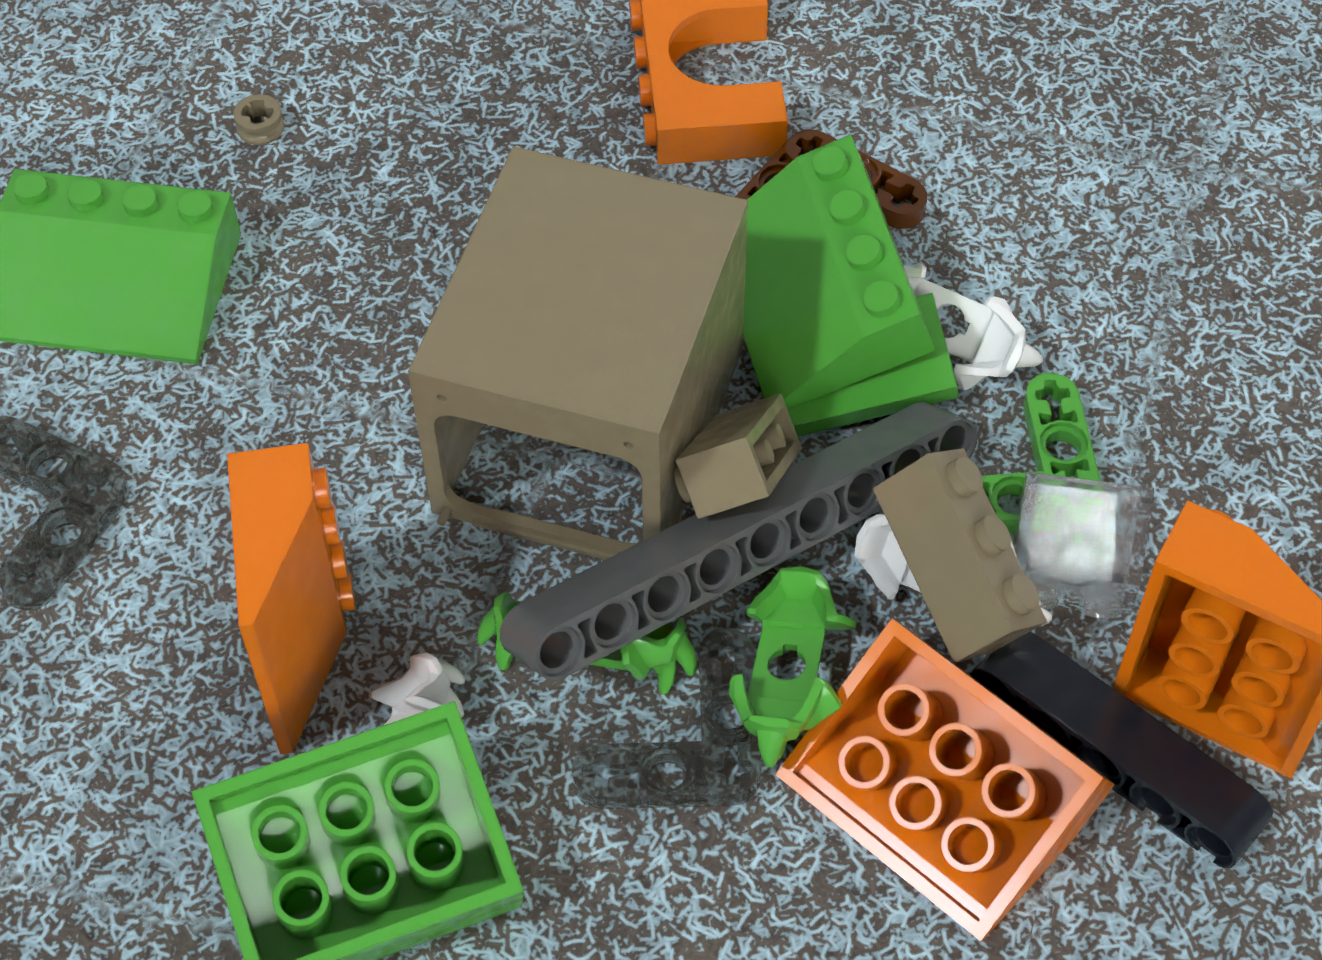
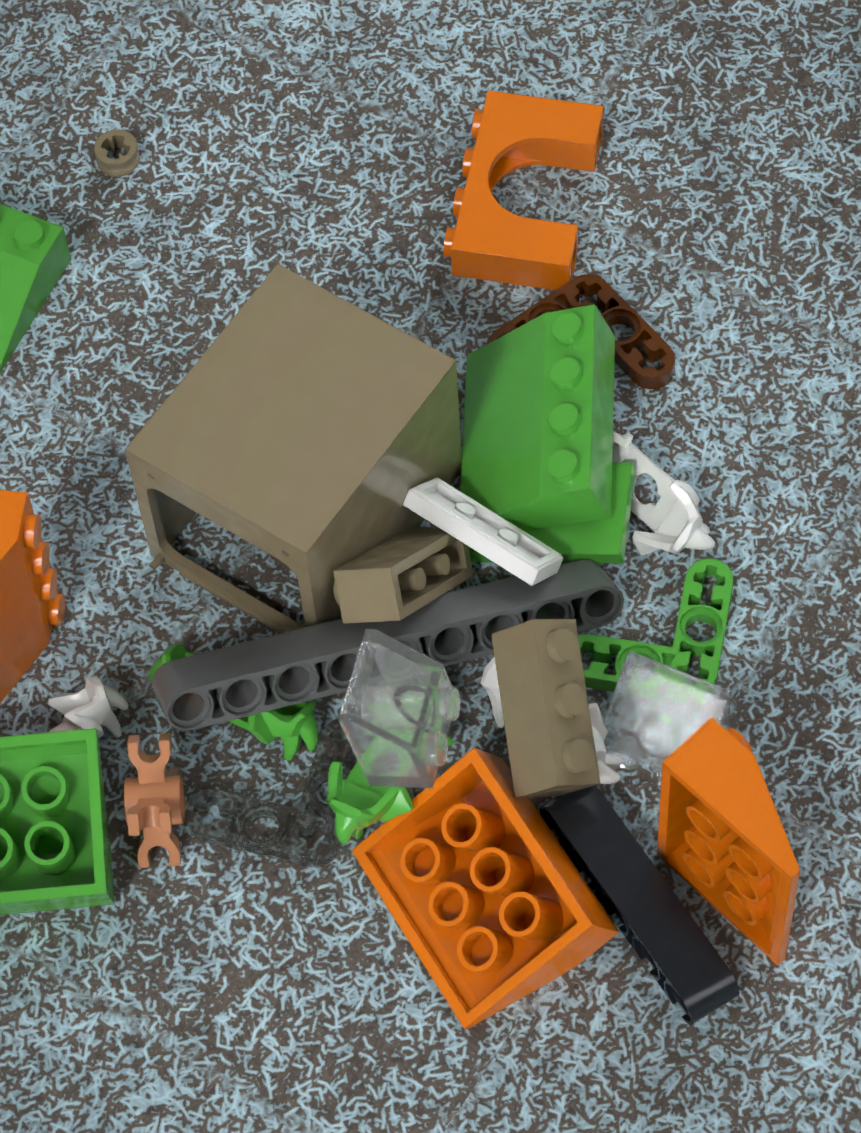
camera: 20 degrees right, 5 degrees up
(540, 771) = (154, 800): none -> nougat pin
(804, 599) = (398, 713): none -> clear slope
(808, 391) = (483, 531): none -> white tile

